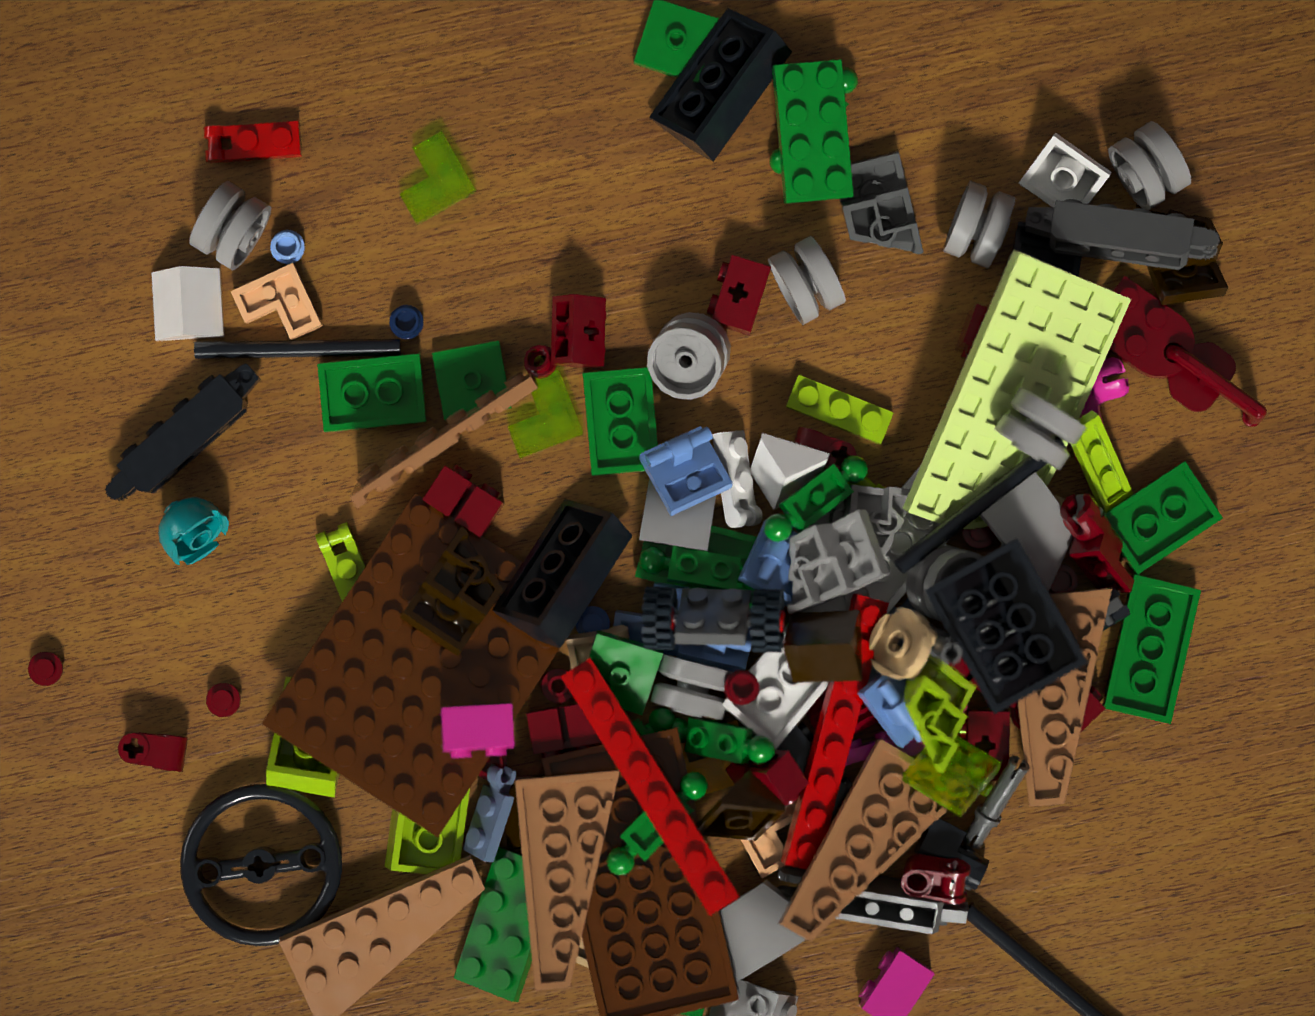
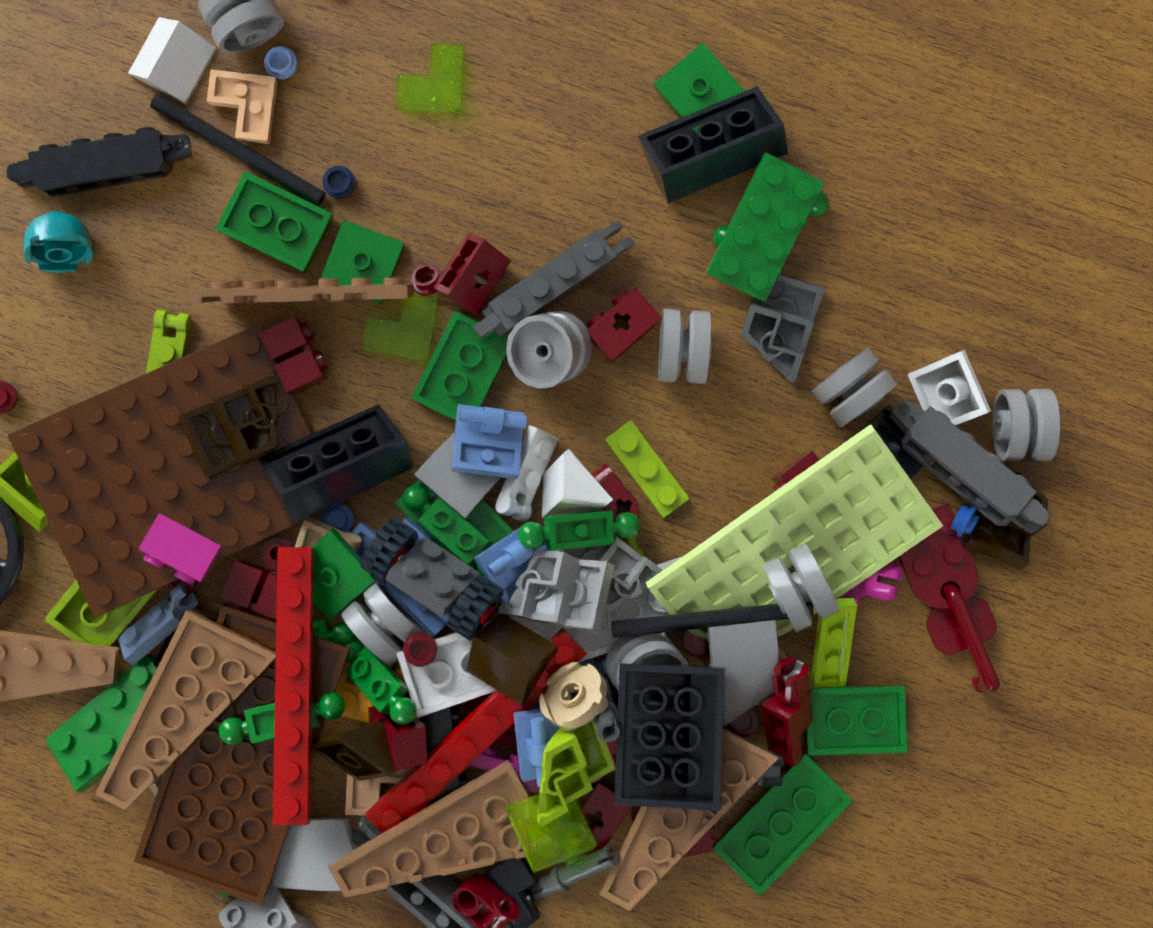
camera: 30 degrees right, 0 degrees up
(654, 295) = (552, 282): none -> dark grey hinge
(1148, 283) = (965, 521): none -> blue plate

